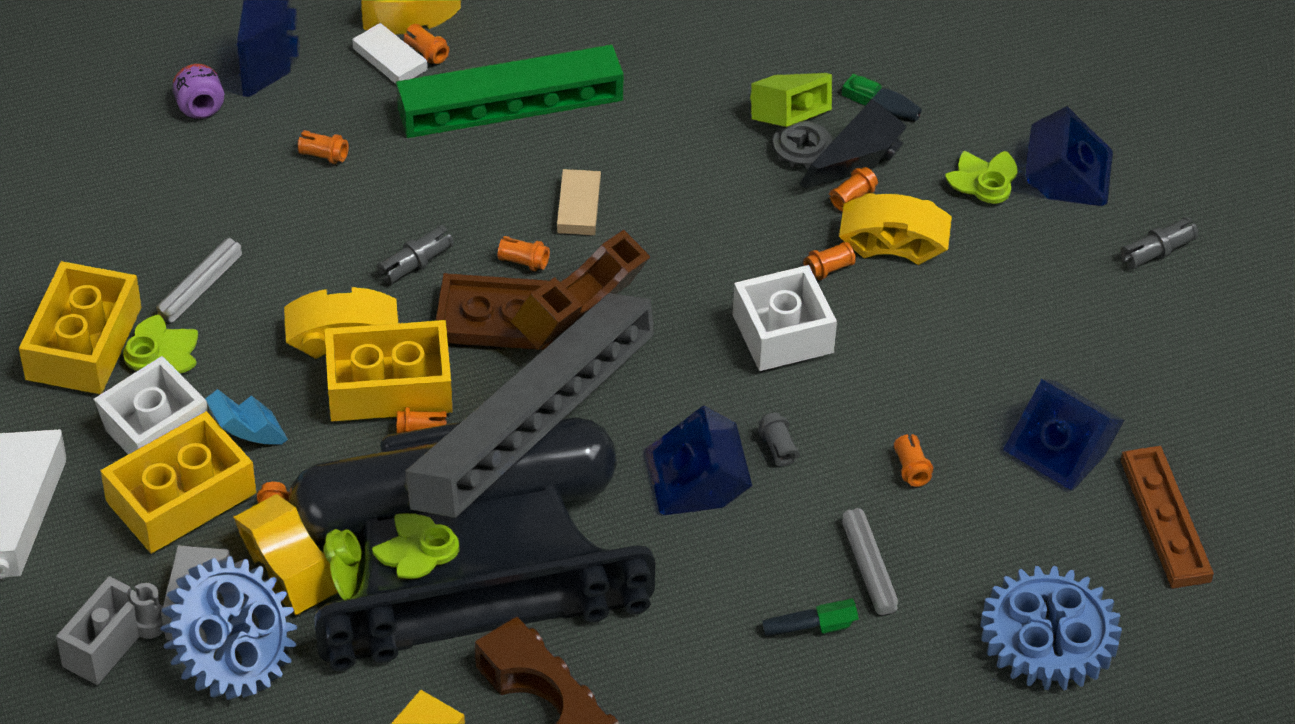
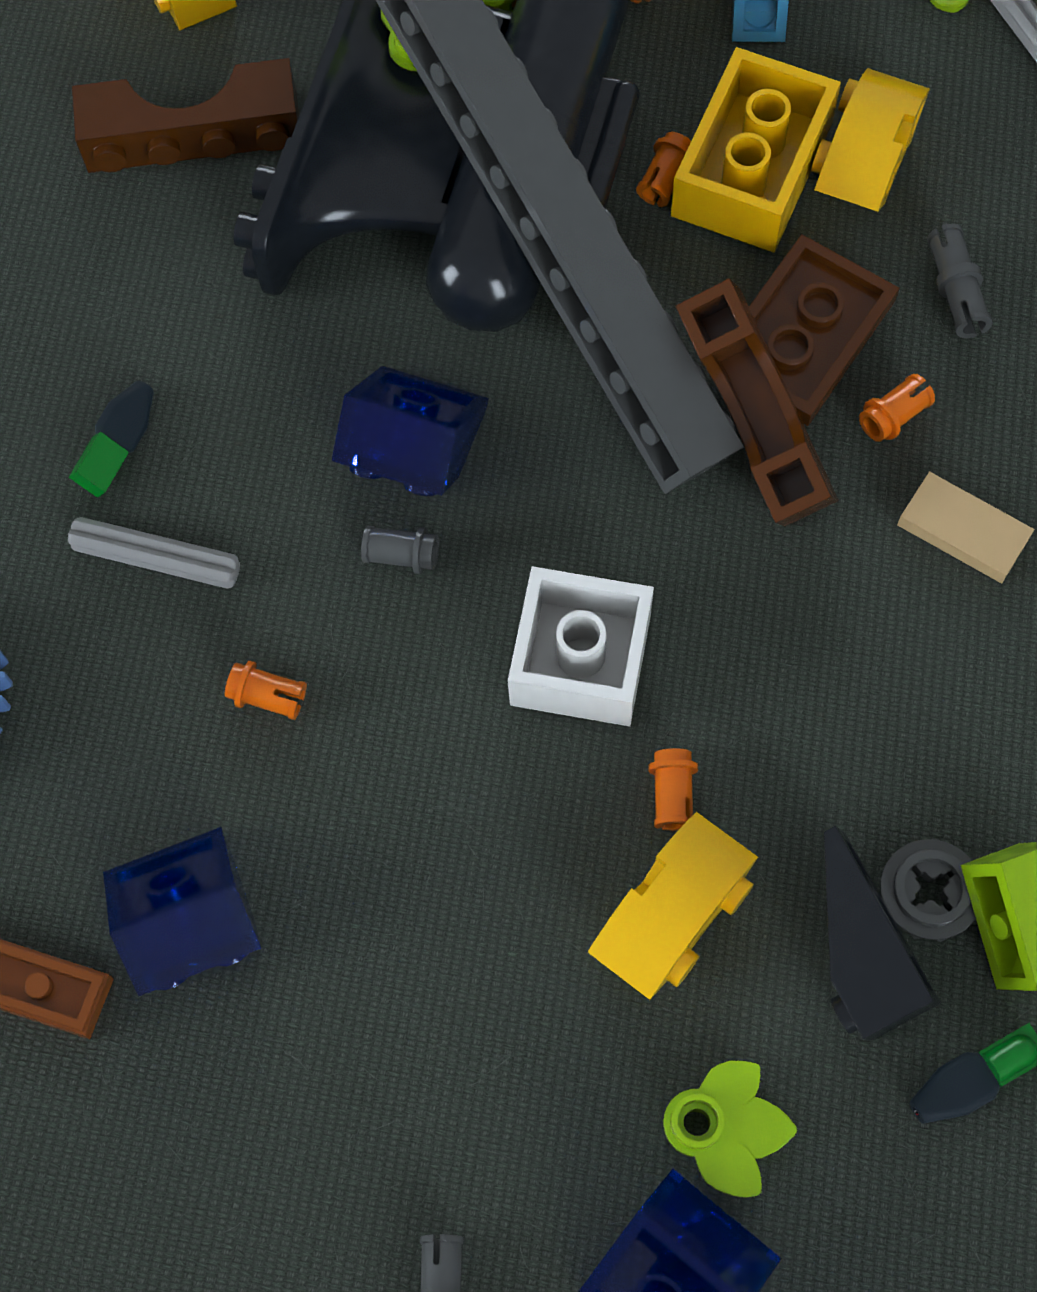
camera: 125 degrees right, 20 degrees up
(860, 183) = (797, 907): orange pin -> none

